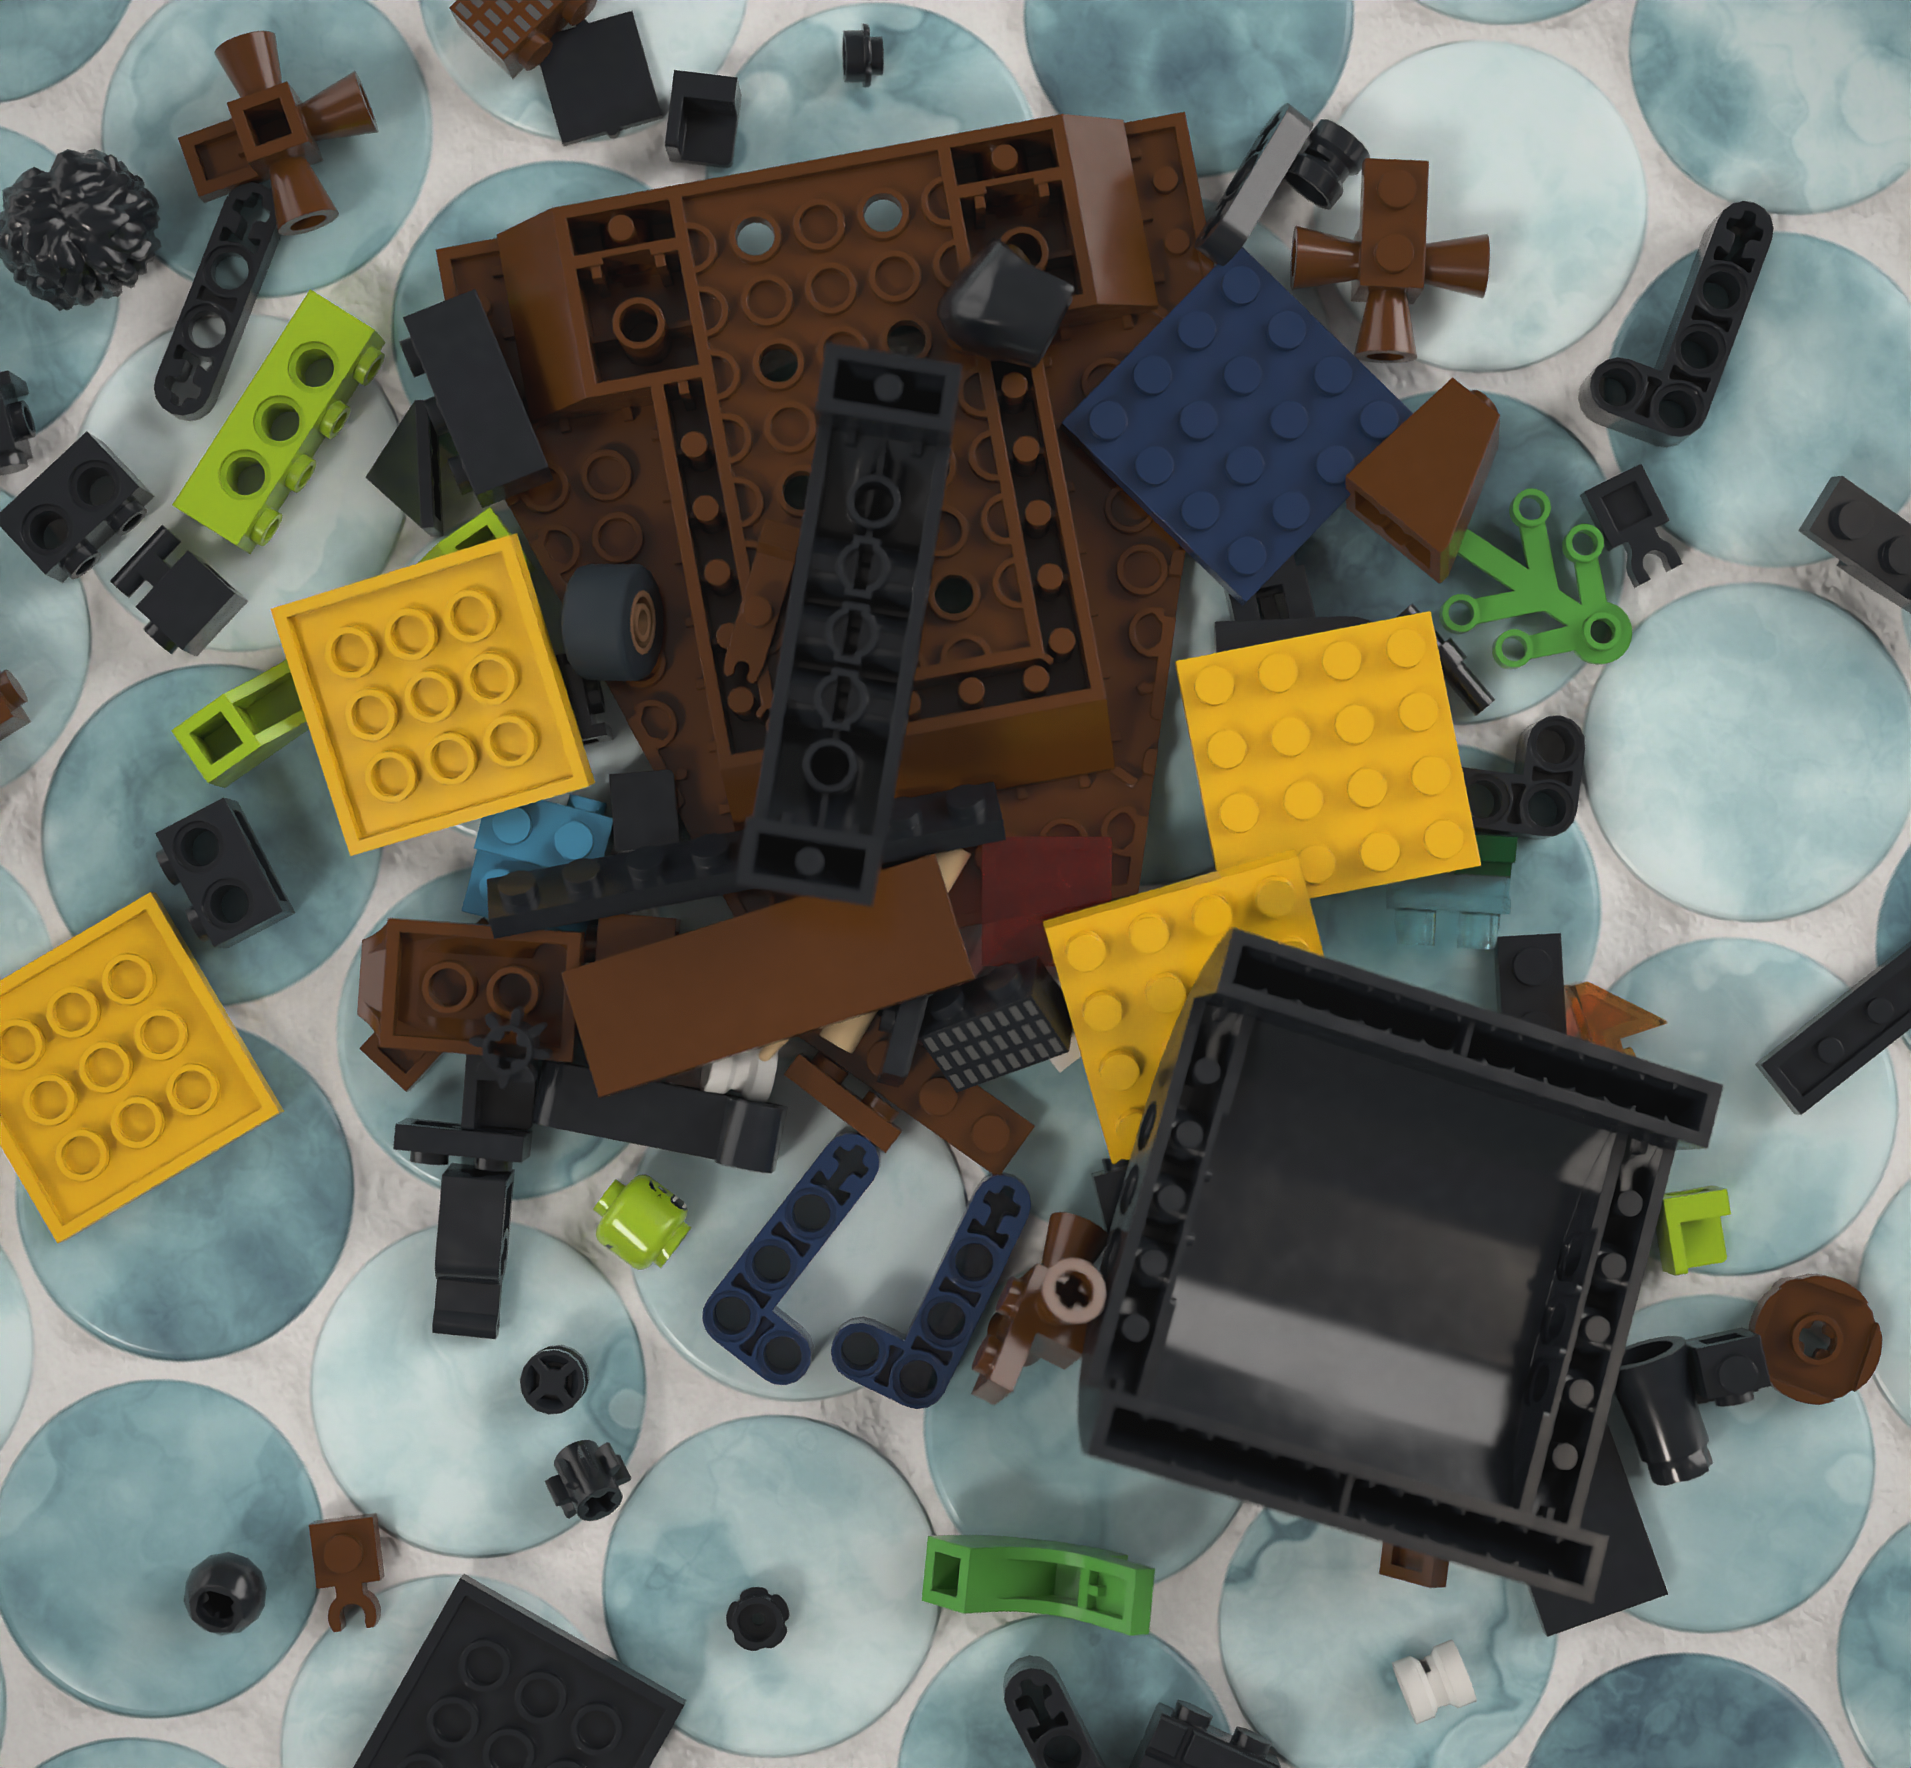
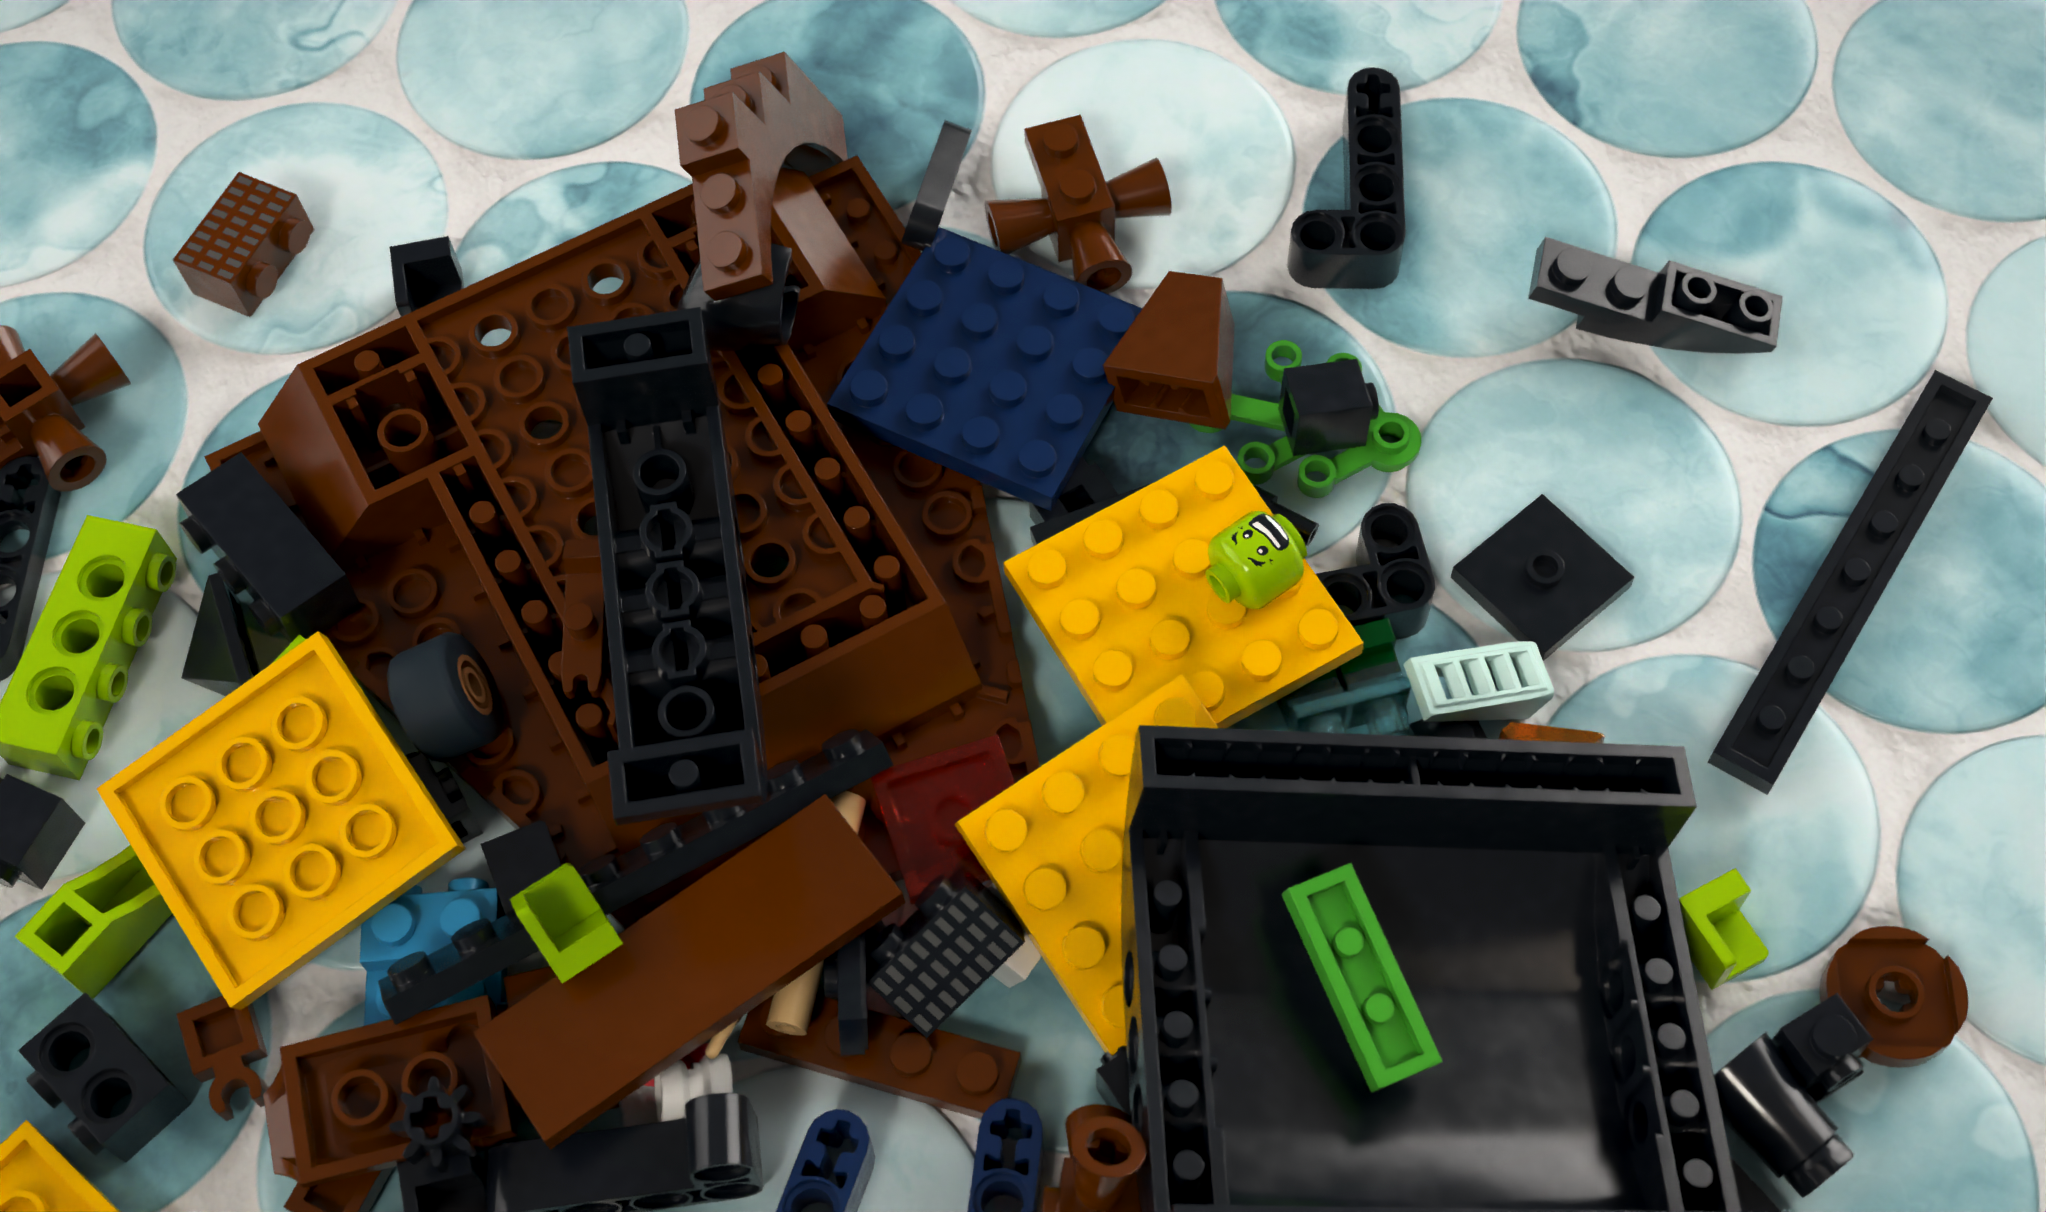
camera: 15 degrees left, 25 degrees down
(336, 879) = (221, 1047): none -> reddish brown plate
(599, 79) = (329, 294): black piece -> none
(668, 907) = (565, 922): none -> lime panel
(824, 1082) = (790, 1082): reddish brown plate -> none
(861, 56) = (559, 202): black plate -> none
(1049, 158) = (734, 153): none -> reddish brown arch
(1326, 164) = (993, 162): black wheel -> none
(1349, 1195) = (1361, 977): none -> bright green plate
(1409, 761) = (1256, 559): none -> lime head
(1548, 591) = (1326, 407): none -> black brick
(1616, 925) = (1516, 670): none -> light aqua slope
(1627, 515) = (1379, 343): black plate -> none
(1684, 827) = (1542, 576): none -> black plate

